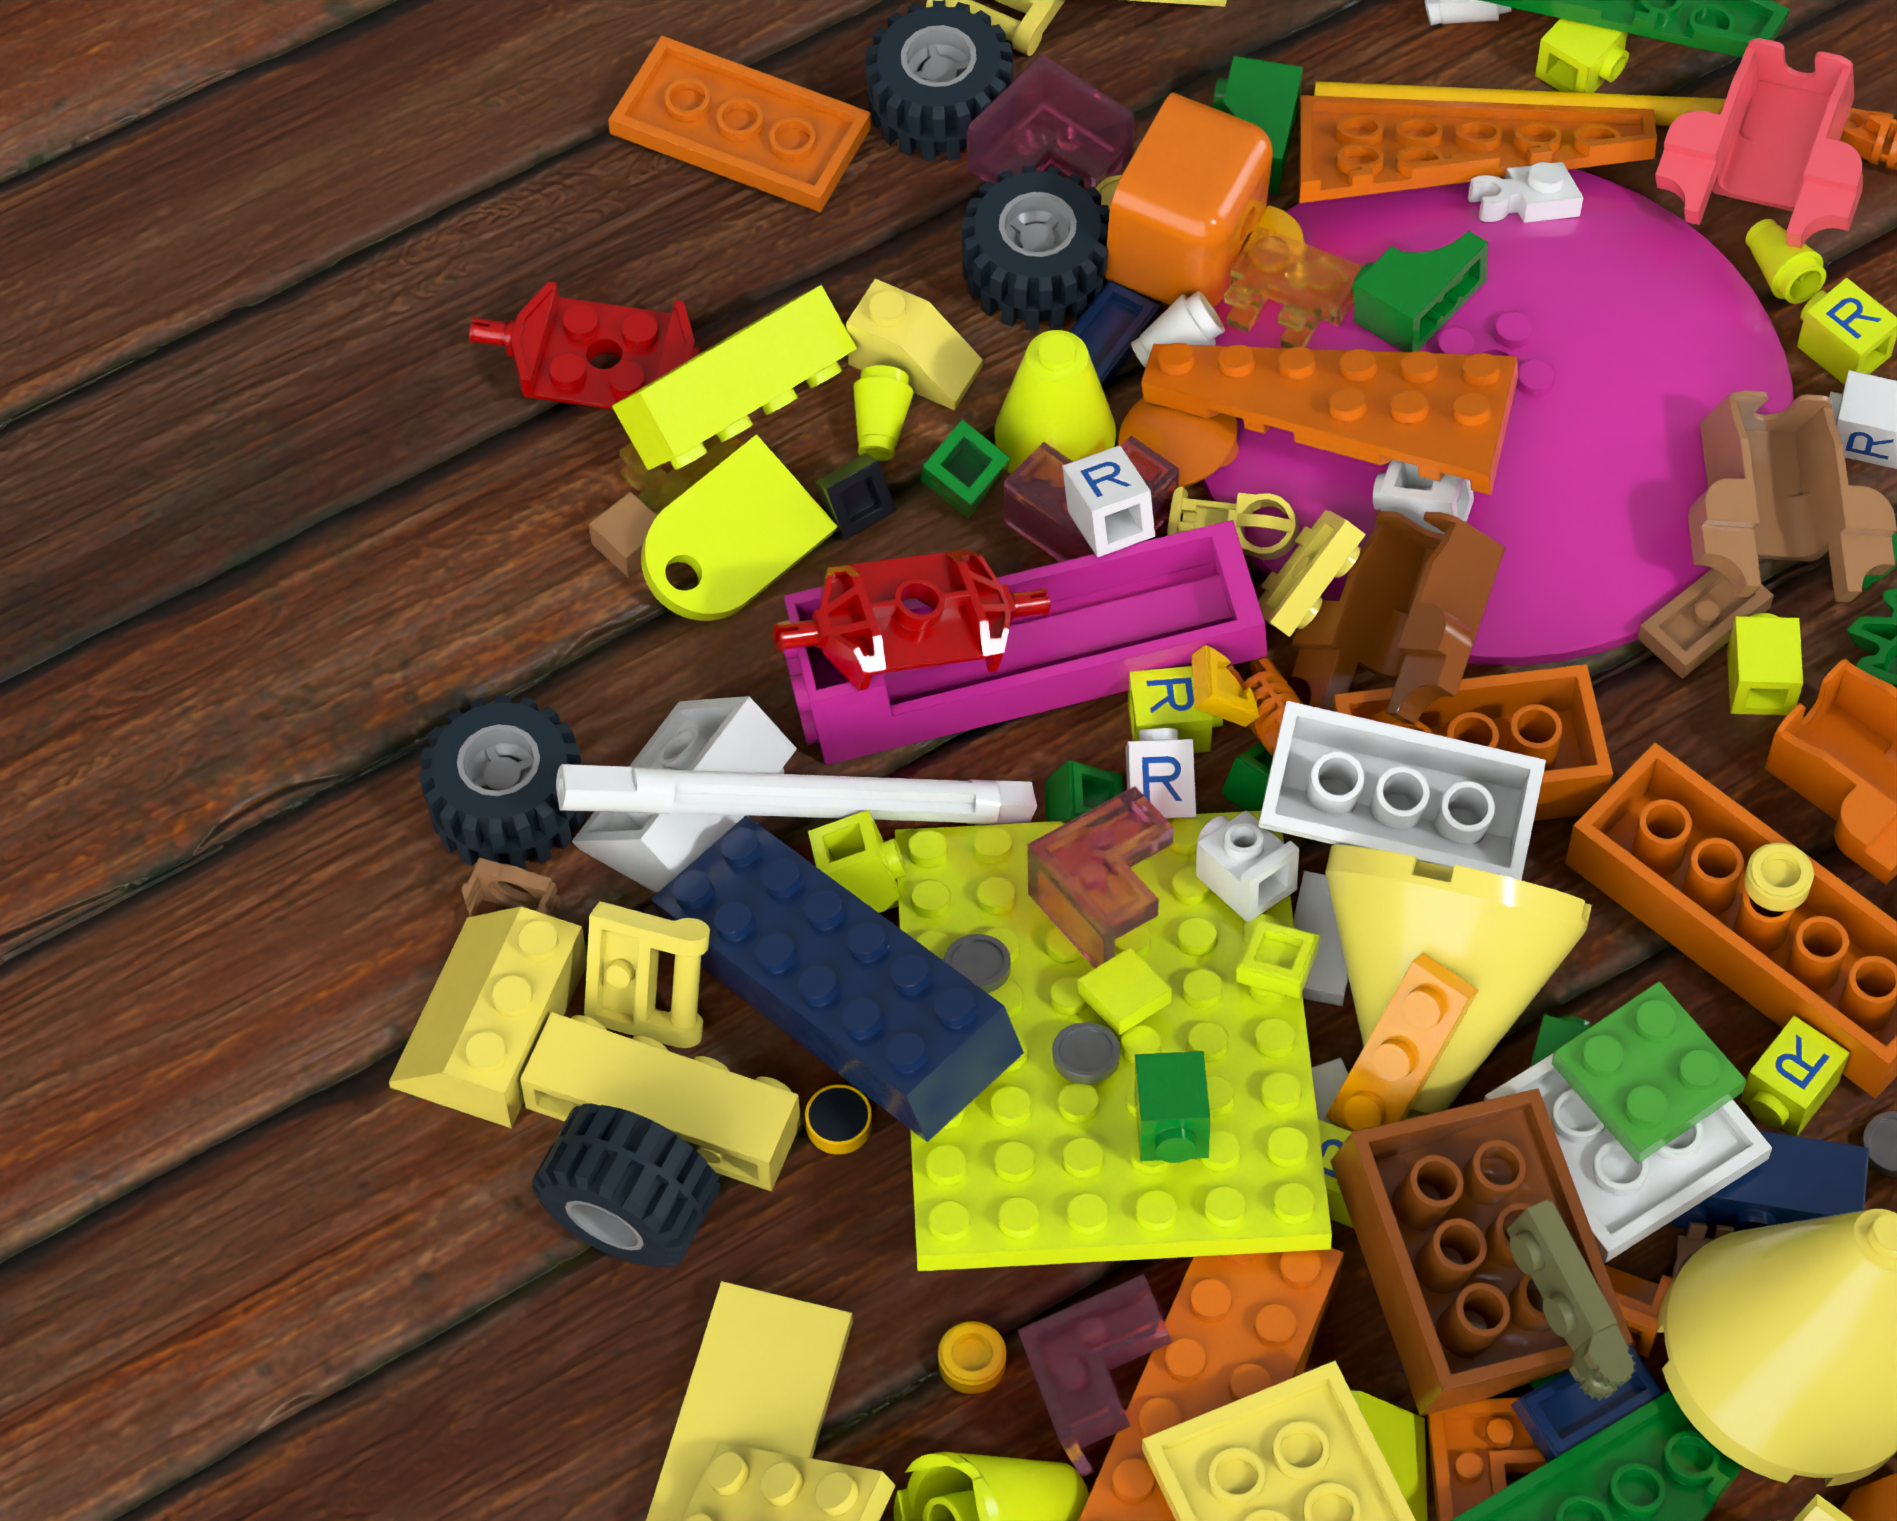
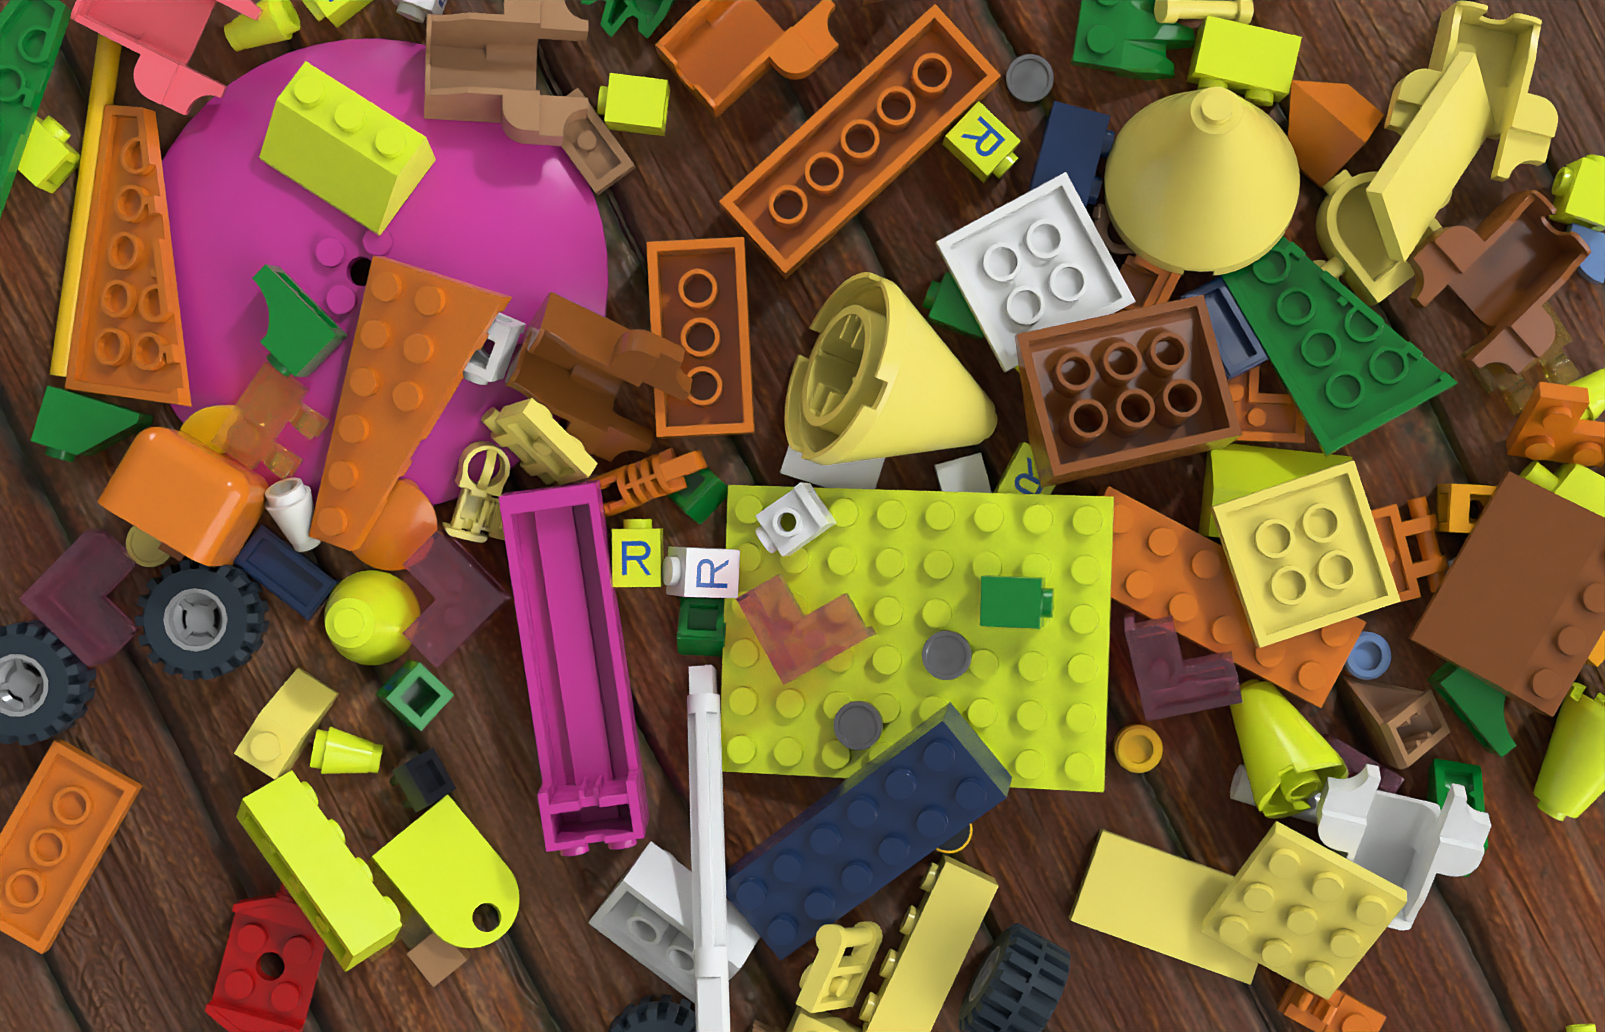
camera: 90 degrees left, 30 degrees up
(859, 859) = (758, 805): neon yellow brick -> none
(872, 632) = (600, 788): red plate -> none
(1108, 501) = (476, 592): white brick -> none
(1124, 991) = (897, 621): neon yellow tile -> none
(1218, 689) = (635, 521): yellow tile -> none
(1277, 958) = (877, 506): neon yellow tile -> none
(1401, 791) = (775, 403): white slope -> none
(1403, 1047) = (970, 426): light orange plate -> none
(1532, 191) = (188, 214): white plate -> none
(1571, 1300) = (1189, 335): olive hinge -> none
(1644, 329) = (344, 148): none -> neon yellow slope
(1648, 1072) = (1004, 251): bright green plate -> none
(1778, 877) = (846, 128): light yellow tile -> none

